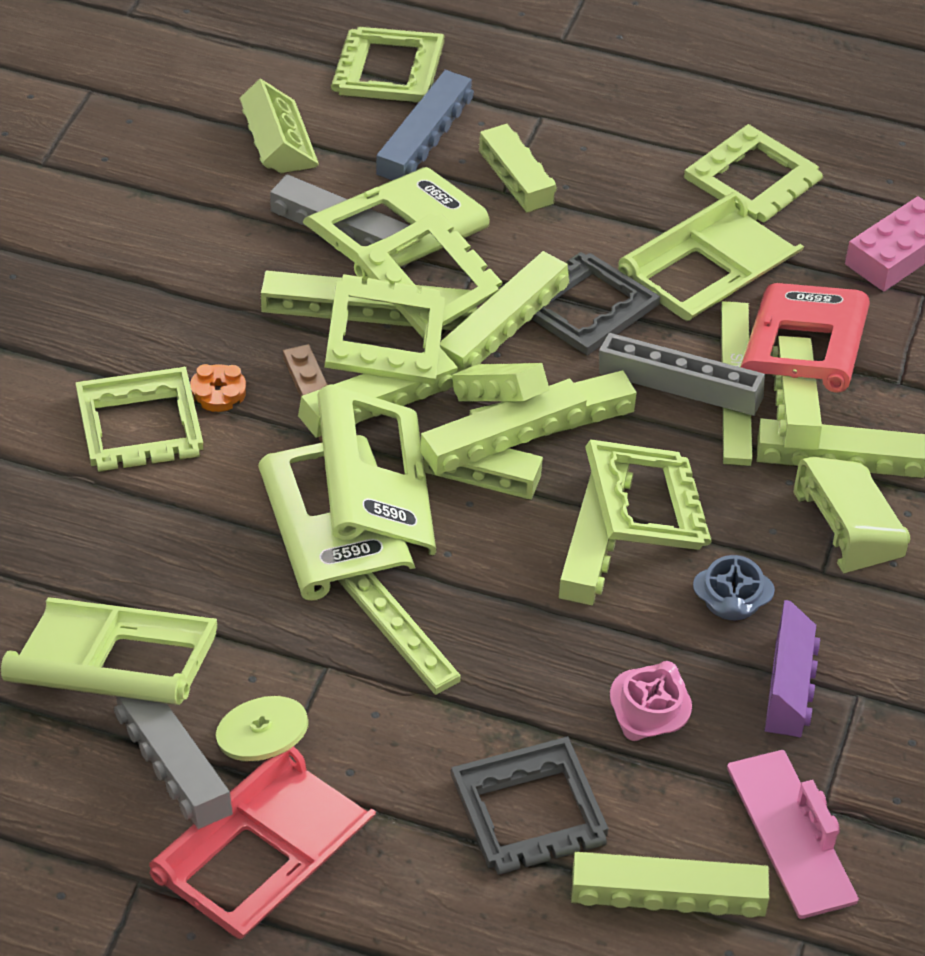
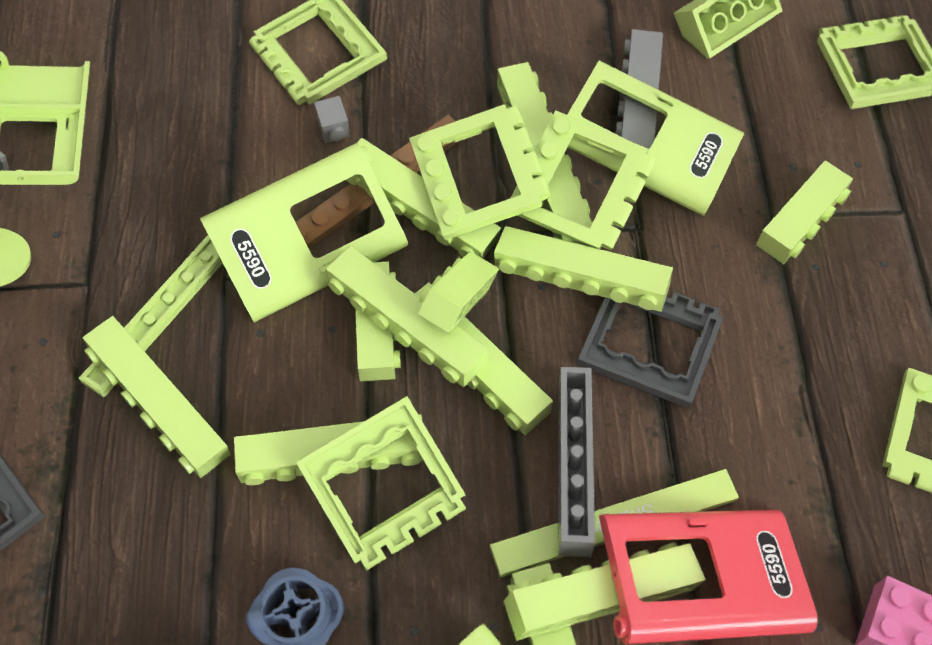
camera: 70 degrees right, 15 degrees up
(208, 377) = (379, 74): orange plate -> none
(242, 430) = (332, 119): none -> light grey brick
(309, 540) = (193, 248): yellowish green piece -> none
(424, 126) = (813, 116): sand blue brick -> none
(488, 628) = (156, 396): none -> yellowish green brick
(650, 701) = (81, 569): bright pink piece -> none
(722, 236) = (830, 450): yellowish green piece -> none

